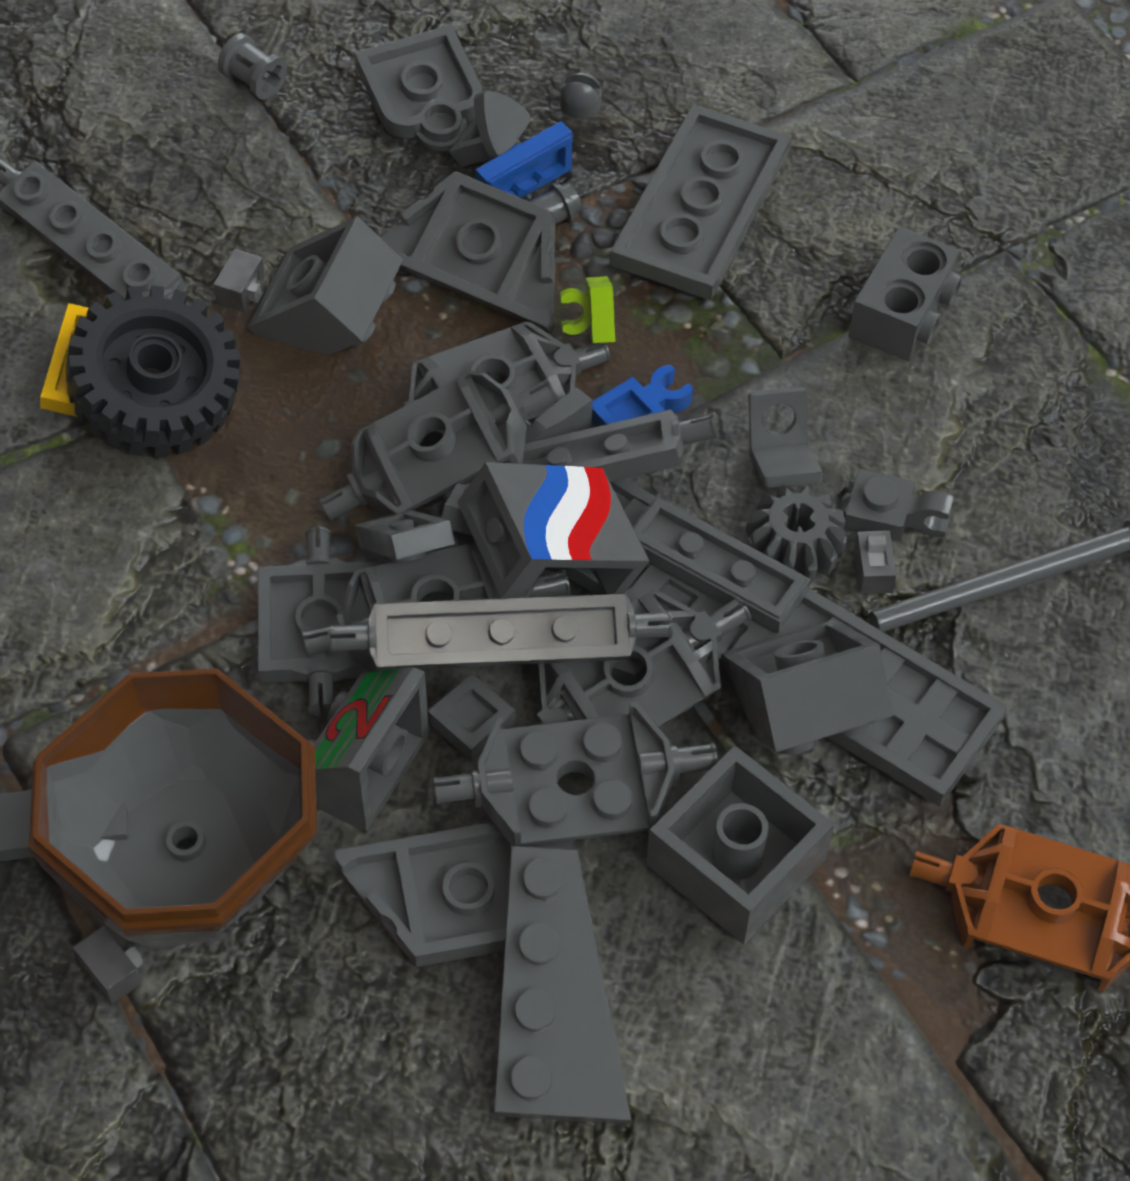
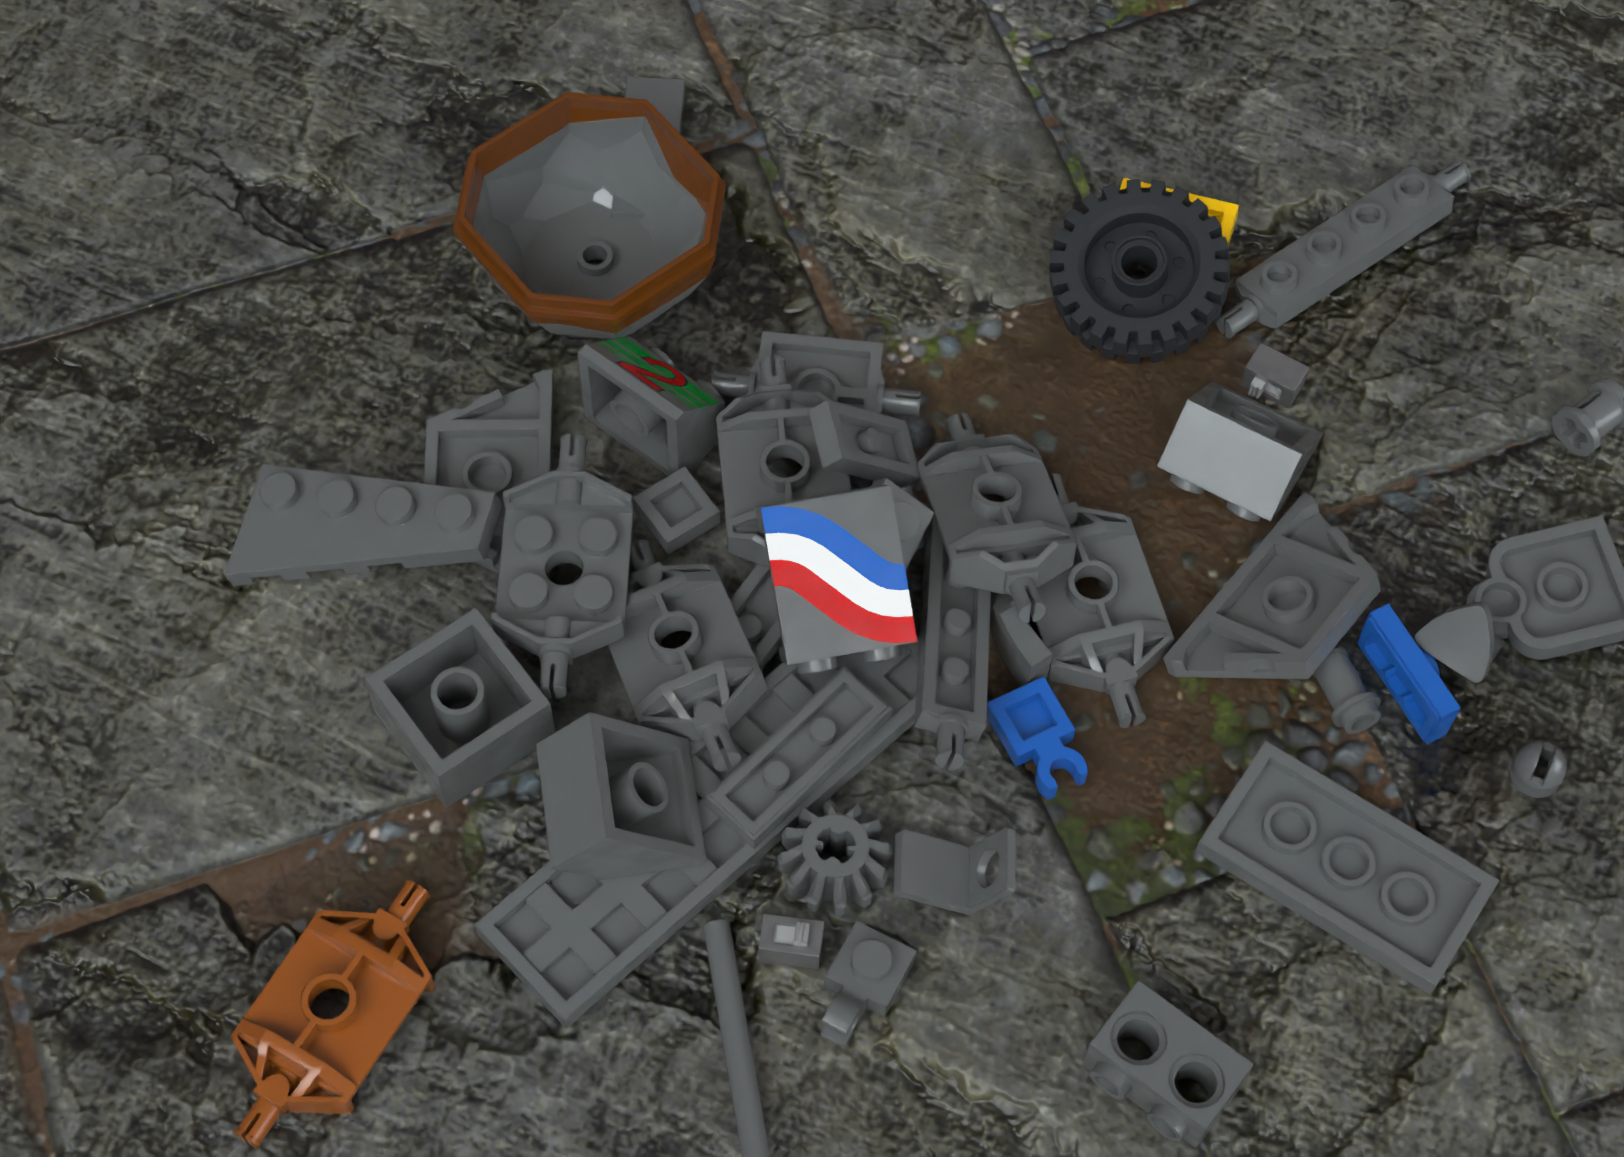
camera: 100 degrees right, 5 degrees up
(501, 631) = (719, 507): plate -> none
(596, 310) = (1174, 703): lime tile -> none

